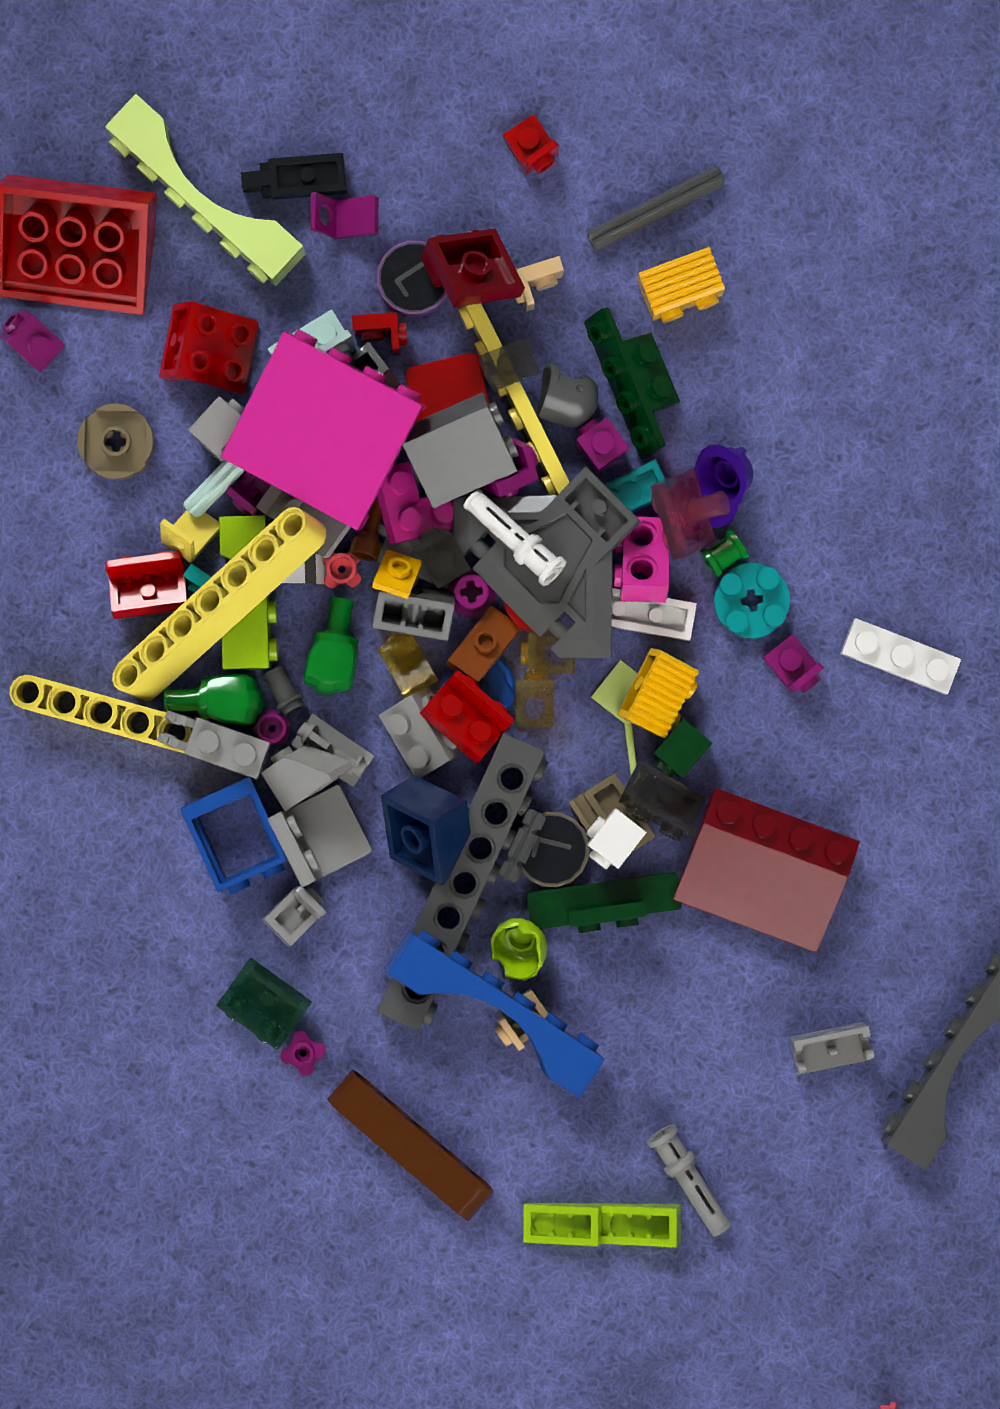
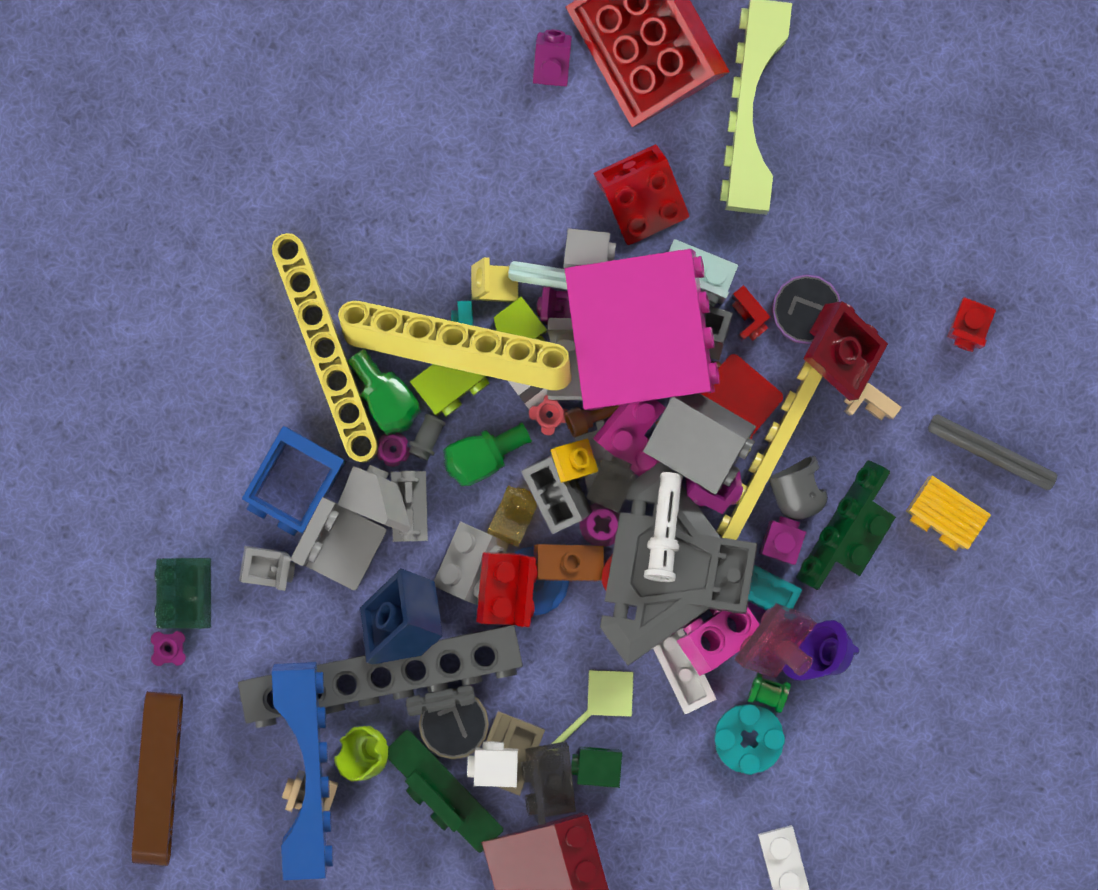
camera: 55 degrees right, 0 degrees up
(100, 426) = (522, 157): dark tan plate -> none
(146, 584) = (432, 278): red bracket -> none
(218, 745) = (350, 420): light grey hinge -> none
(297, 177) = (819, 168): black hinge -> none
(345, 217) = (815, 225): magenta bracket -> none
(507, 365) = (791, 429): clear smoke bracket -> none
(534, 656) = (588, 605): clear yellow bracket -> none
(534, 686) = (565, 621): clear yellow bracket -> none
(659, 693) = (628, 720): yellow brick -> none
(793, 665) = (723, 805): magenta bracket -> none

